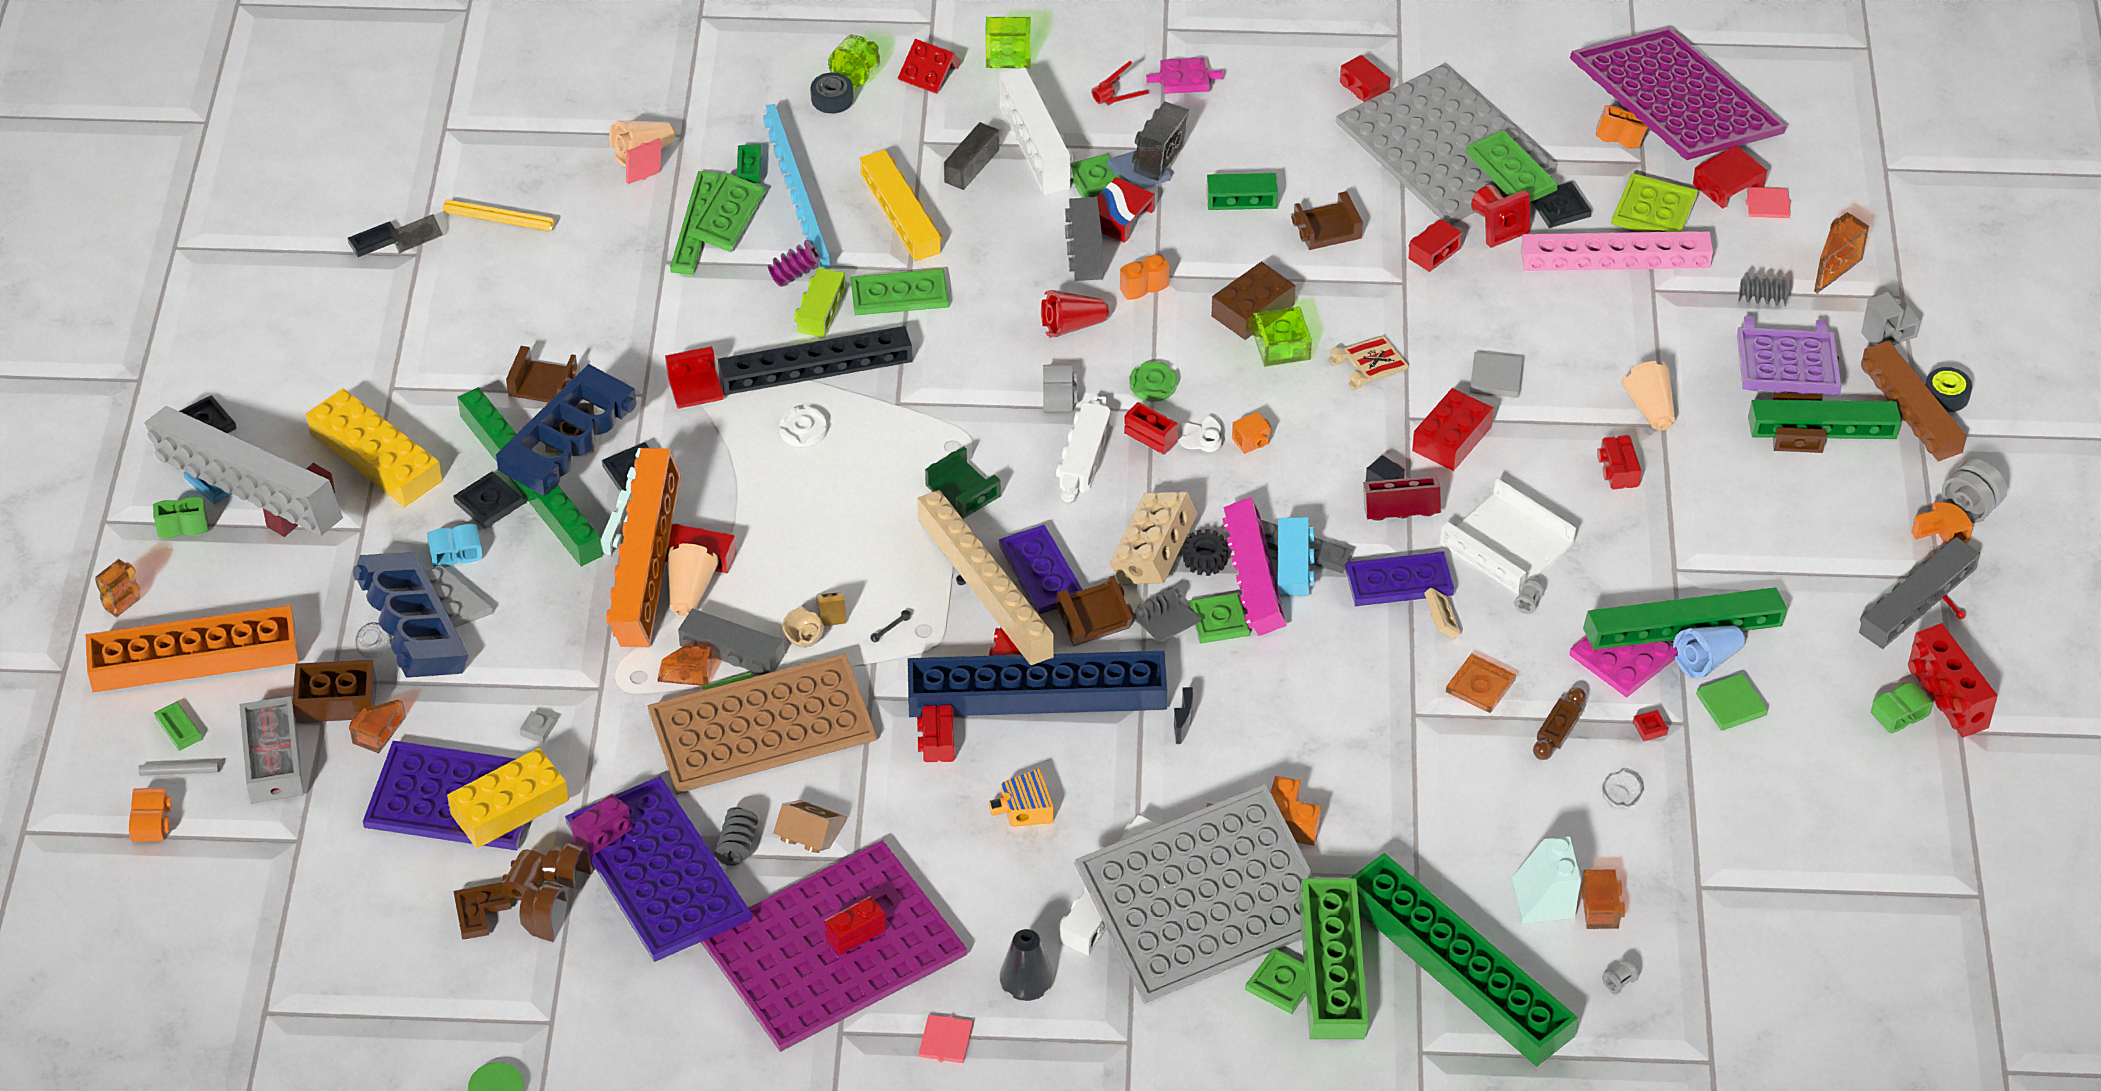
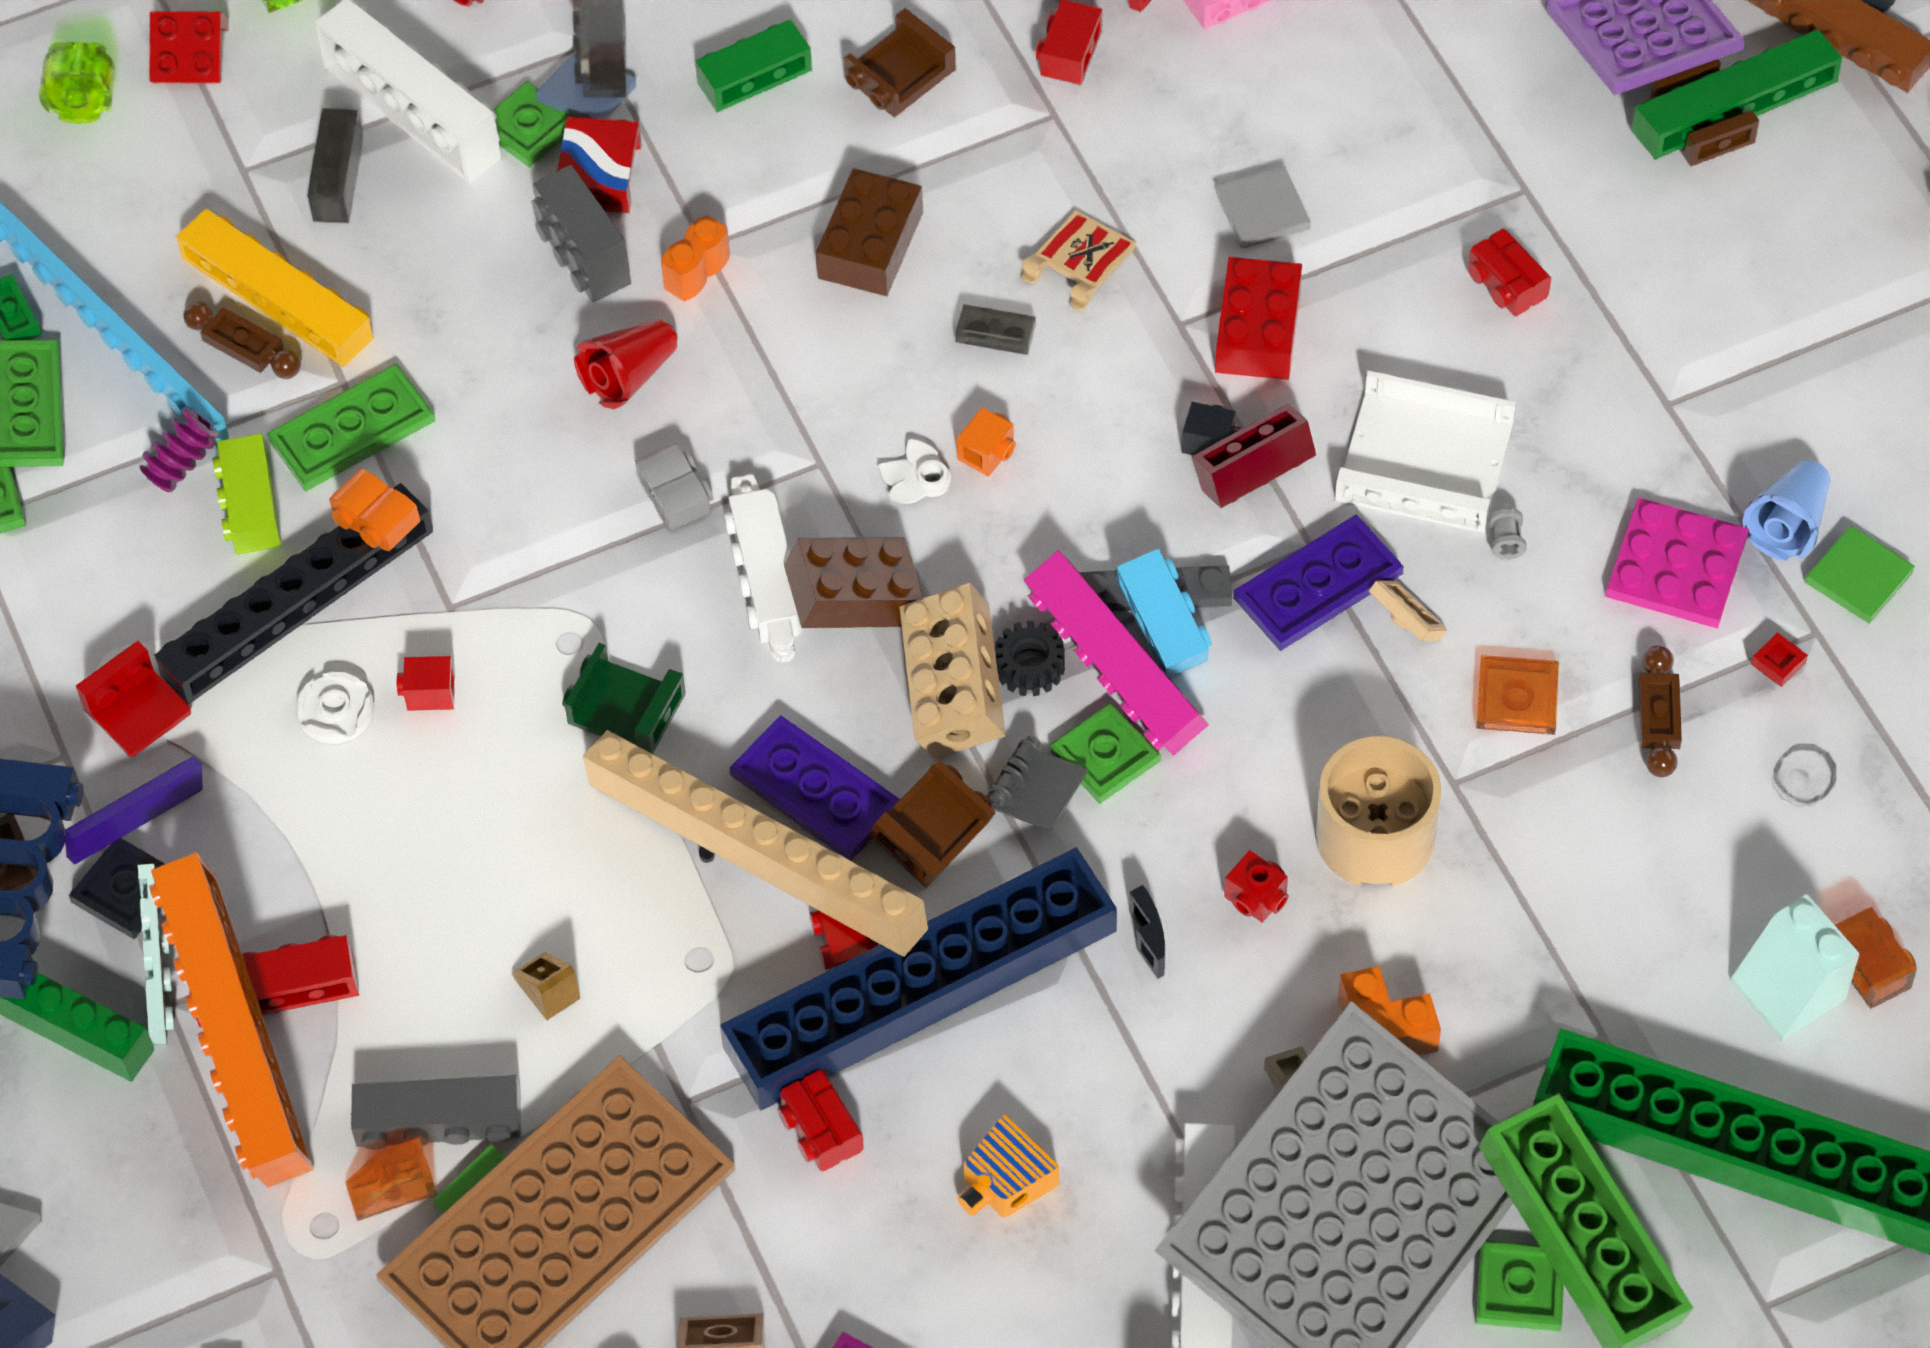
camera: 25 degrees left, 10 degrees up
(660, 430) = (133, 810): none -> dark purple tile
(689, 576) = (316, 1035): light nougat cone -> none
(802, 627) = (530, 1039): tan hair -> none
(831, 92) = (69, 145): black wheel -> none
(859, 432) = (427, 683): none -> red brick
(865, 225) = (242, 340): none -> reddish brown plate
(879, 331) = (374, 510): none -> orange brick
(905, 615) = (660, 949): black hinge -> none
(1124, 469) = (851, 581): none -> reddish brown brick
(1151, 428) = (845, 496): red brick -> none
(1153, 381) = (798, 417): bright green tile -> none
(1258, 716) = (1256, 887): none -> red brick
(1282, 336) = (944, 272): clear neon green brick -> none
(1295, 378) = (995, 329): none -> clear smoke plate
(1351, 702) = (1378, 811): none -> tan brick
(1652, 393) = (1496, 152): light nougat cone -> none
(1665, 619) = (1735, 478): green brick -> none

